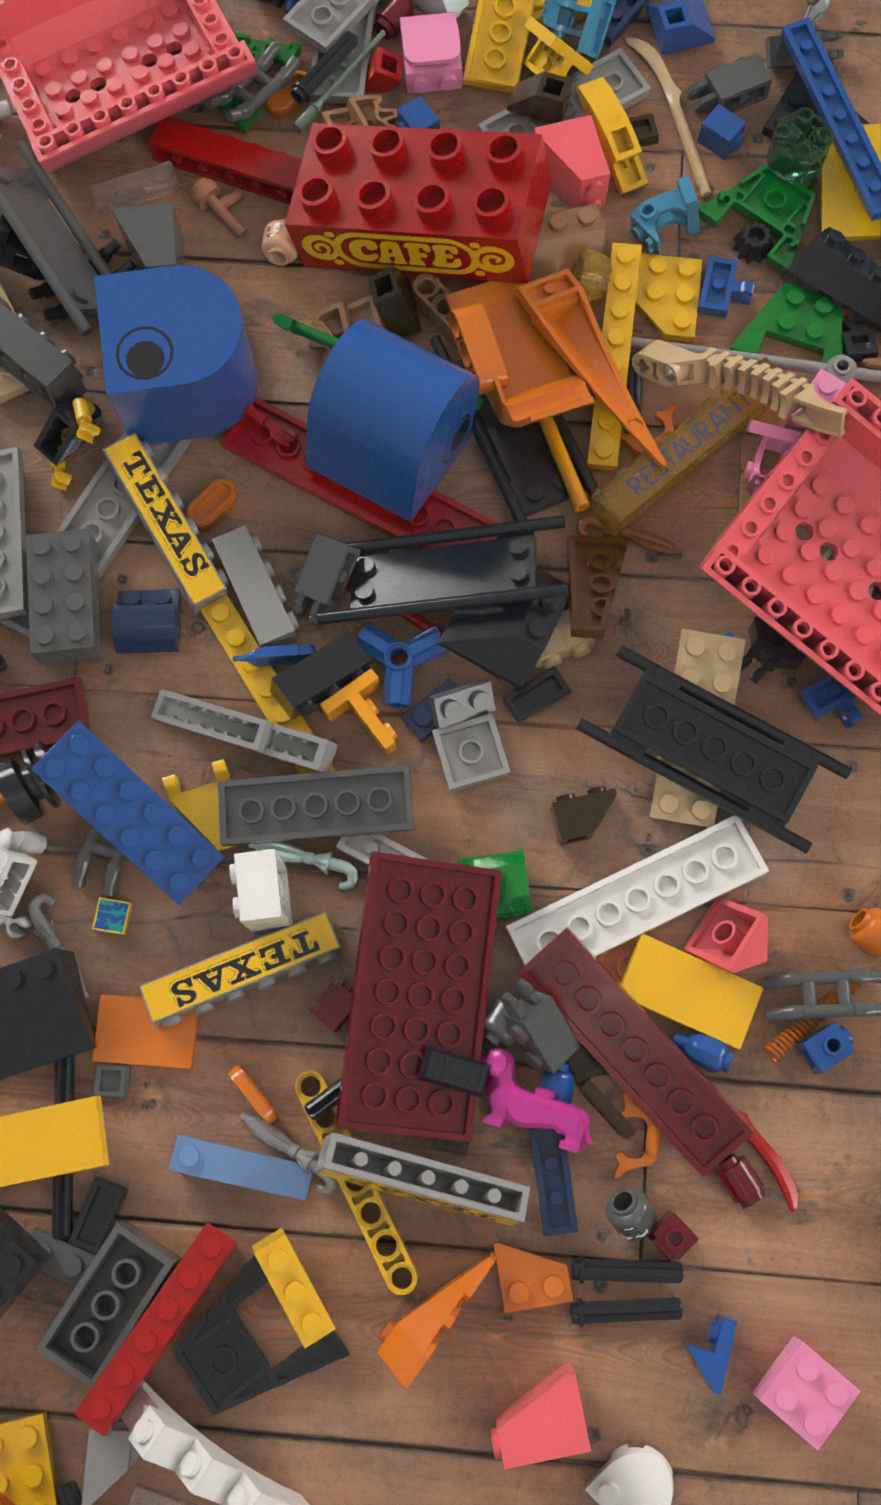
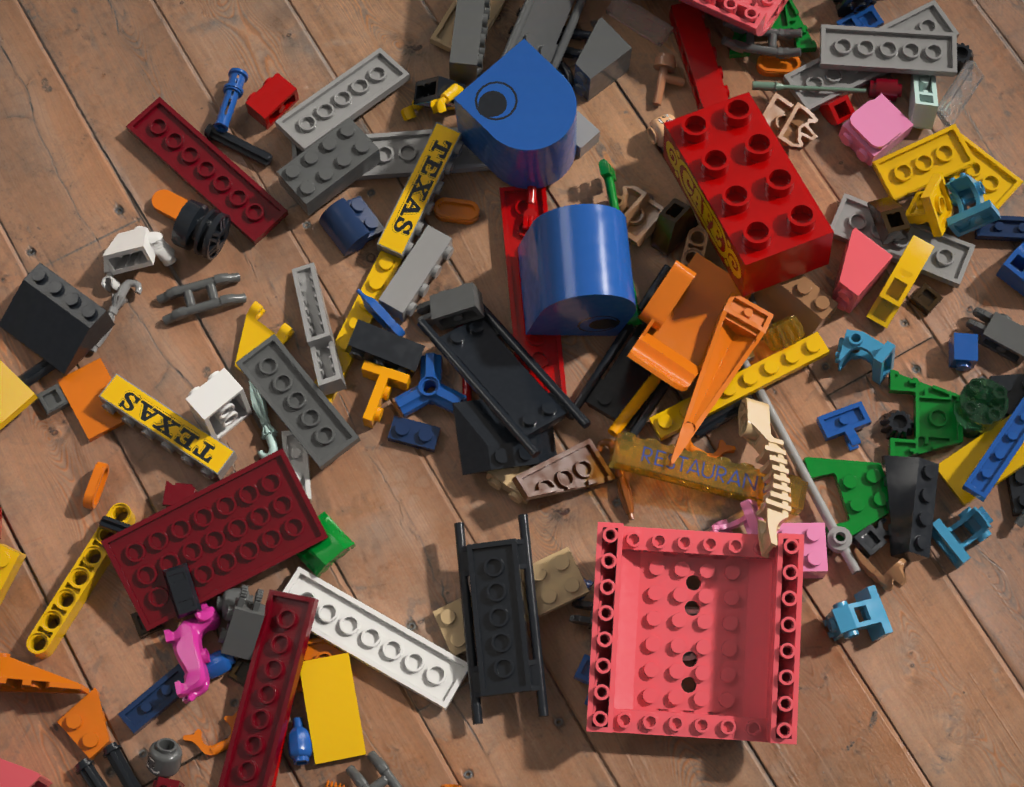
camera: 50 degrees right, 5 degrees down
(112, 916) = (152, 332): tile -> none
(127, 812) = (215, 294): blue brick -> none
(239, 1167) = (47, 507): medium blue slope -> none
(277, 1139) = (76, 543): light grey piece -> none
(302, 90) = (808, 72): black axle -> none
(417, 115) = (815, 156): blue brick -> none
(423, 1179) = (103, 614): light grey brick -> none
(462, 703) = (426, 446): plate -> none
(471, 752) = (399, 473): light grey plate -> none
(536, 695) = (467, 489): black tile -> none
(580, 816) = (403, 568): dark brown slope -> none
(607, 1110) = (221, 703): dark brown tile -> none
(669, 295) = (815, 392): yellow plate -> none
(673, 97) = (968, 303): tan piece -> none
(730, 936) = (383, 711): coral slope -> none

